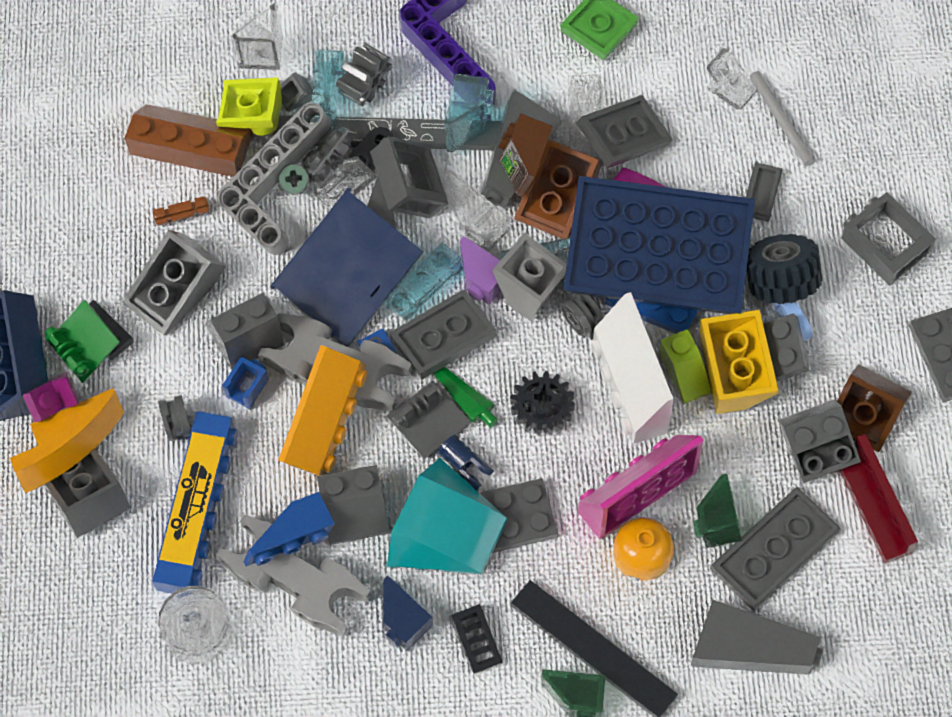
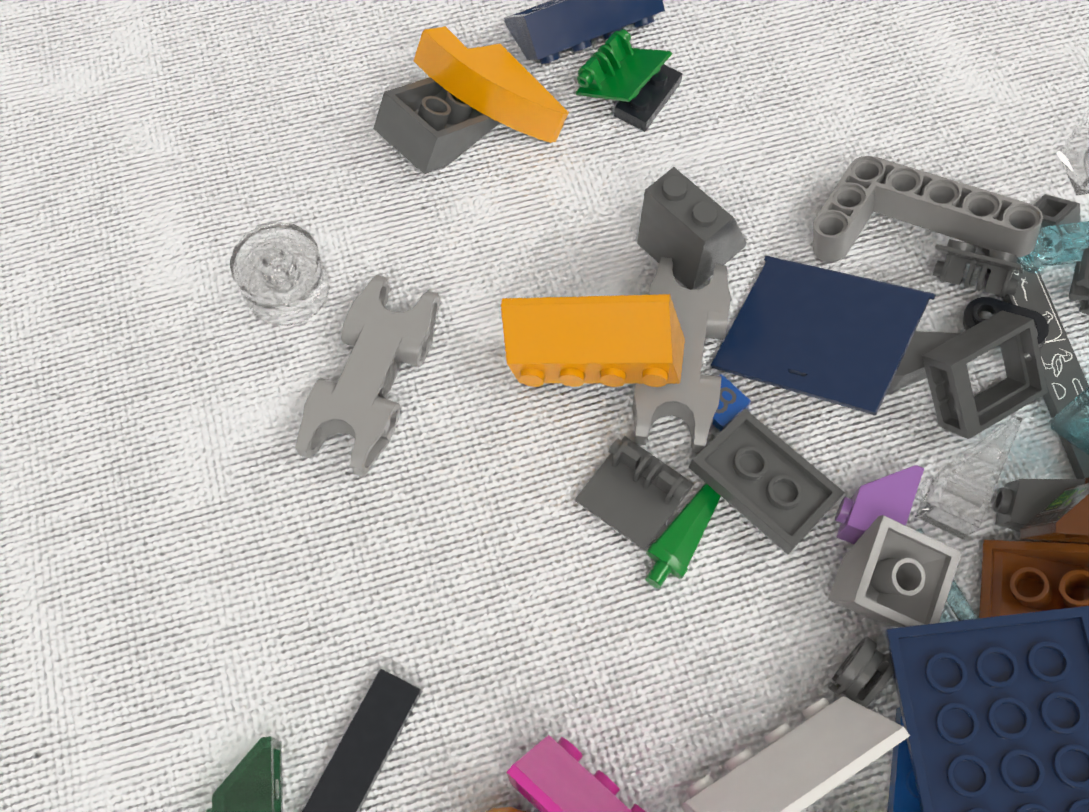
camera: 75 degrees right, 0 degrees up
(52, 397) = (540, 56): magenta slope -> none
(173, 281) = (736, 145): dark grey slope -> none
(179, 420) = (550, 187): dark grey wheel -> none
(181, 211) = (832, 133): dark orange axle -> none
(187, 140) = (932, 111): dark orange slope -> none
(195, 502) = (443, 238): brick -> none
(245, 382) = (622, 254): blue window -> none
(251, 104) = (1011, 163): neon yellow slope -> none
(285, 178) = (924, 230): sand green bush -> none
(297, 525) = (424, 347): blue slope -> none
(348, 173) = (956, 300): clear slope -> none
(354, 504) = (483, 421): dark grey slope -> none
(402, 616) = (335, 520): dark blue slope -> none
(425, 281) = (837, 437): clear light blue leg -> none
(445, 525) = (477, 547): teal wedge -> none
(462, 458) = (585, 548): dark blue hinge -> none
(477, 612) = (331, 642): black slope -> none
(527, 514) = (512, 634): dark grey plate -> none
(555, 404) = (720, 641): black gear -> none

